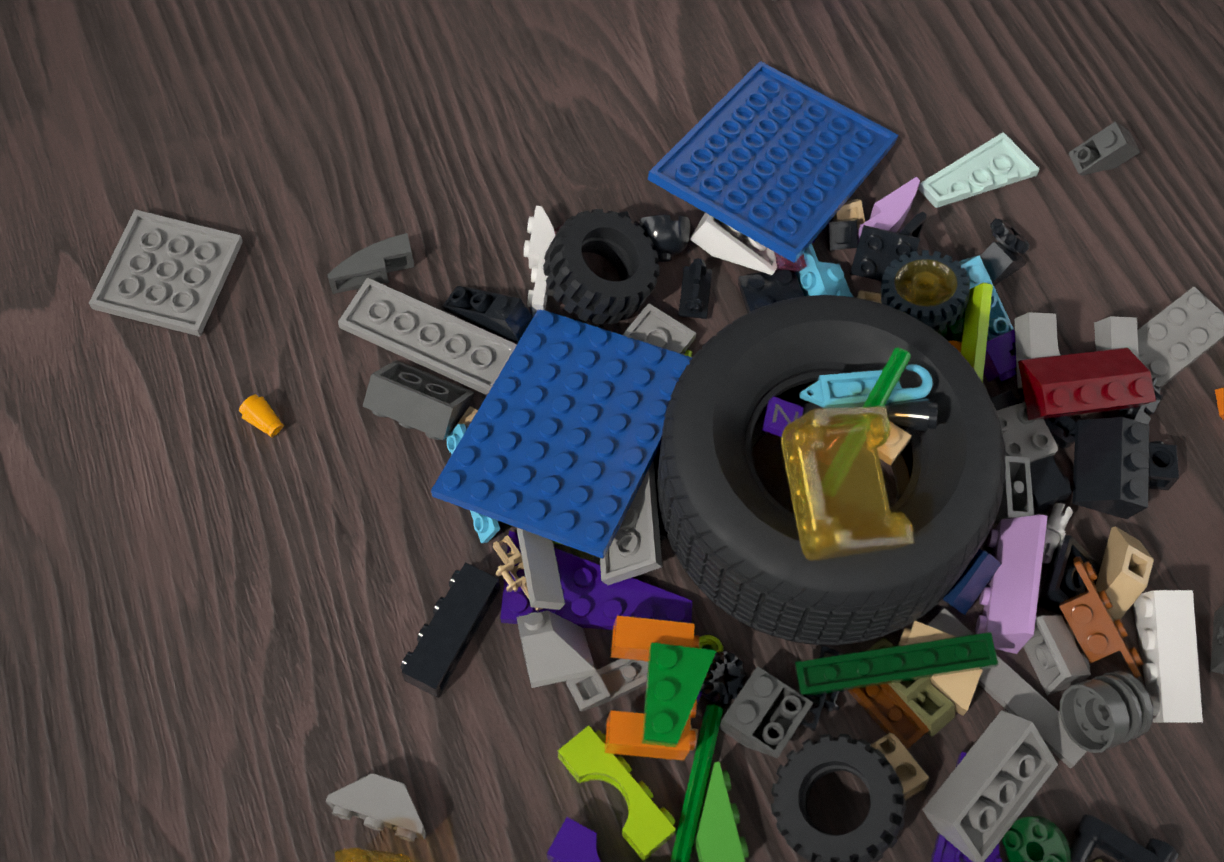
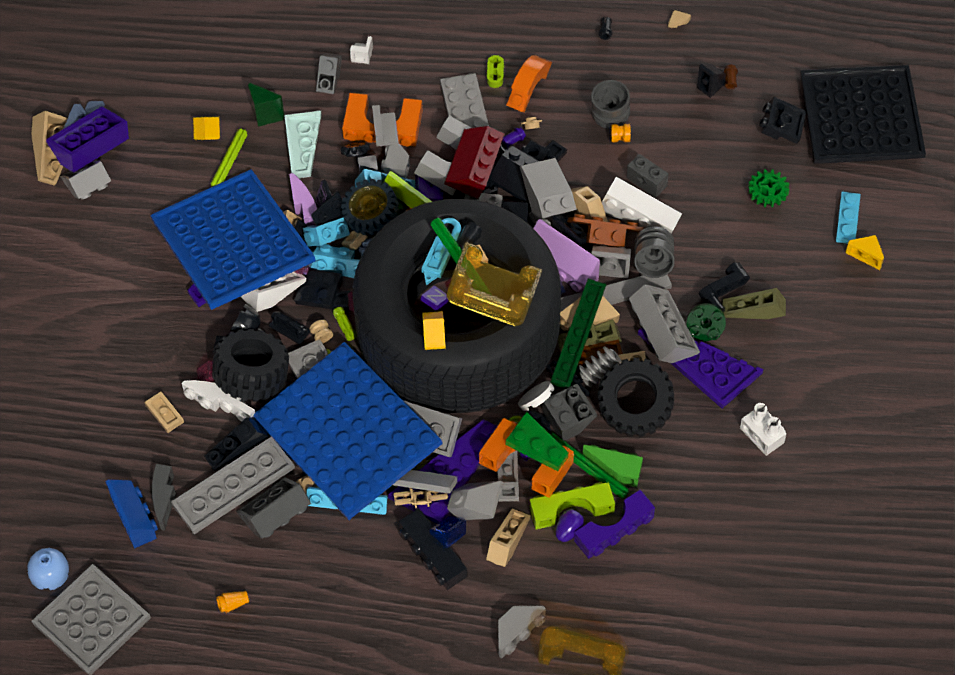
camera: 60 degrees left, 5 degrees down
(216, 193) = (48, 569): none -> light blue cylinder
(327, 237) = (132, 511): none -> blue slope
(485, 636) = (449, 530): none -> clear blue slope
(492, 210) = (164, 412): none -> tan plate
(519, 723) = (507, 537): none -> tan slope
(581, 803) = (567, 524): none -> dark purple animal
(709, 326) = (321, 331): none -> tan wheel
(727, 440) = (434, 330): none -> yellow slope
(763, 654) = (536, 395): none -> white tile
(858, 262) = (326, 232): none -> medium azure bracket
(864, 721) = (599, 366): none -> light grey piece
(901, 105) = (229, 157): none -> lime axle
(924, 59) = (206, 128): none -> yellow panel
(997, 100) = (265, 105): none -> dark green slope
(1025, 292) = (396, 161): none -> light grey slope
(1061, 249) = (385, 127): none -> light grey panel
(1077, 280) = (359, 128): none -> orange arch
(1107, 504) = (547, 189): none -> light grey slope
(1166, 175) = (361, 52): none -> white panel
(1170, 424) = (513, 137): none -> dark purple pin
(1187, 491) = (556, 150): none -> black tile
(1209, 436) = (531, 123): none -> tan plate

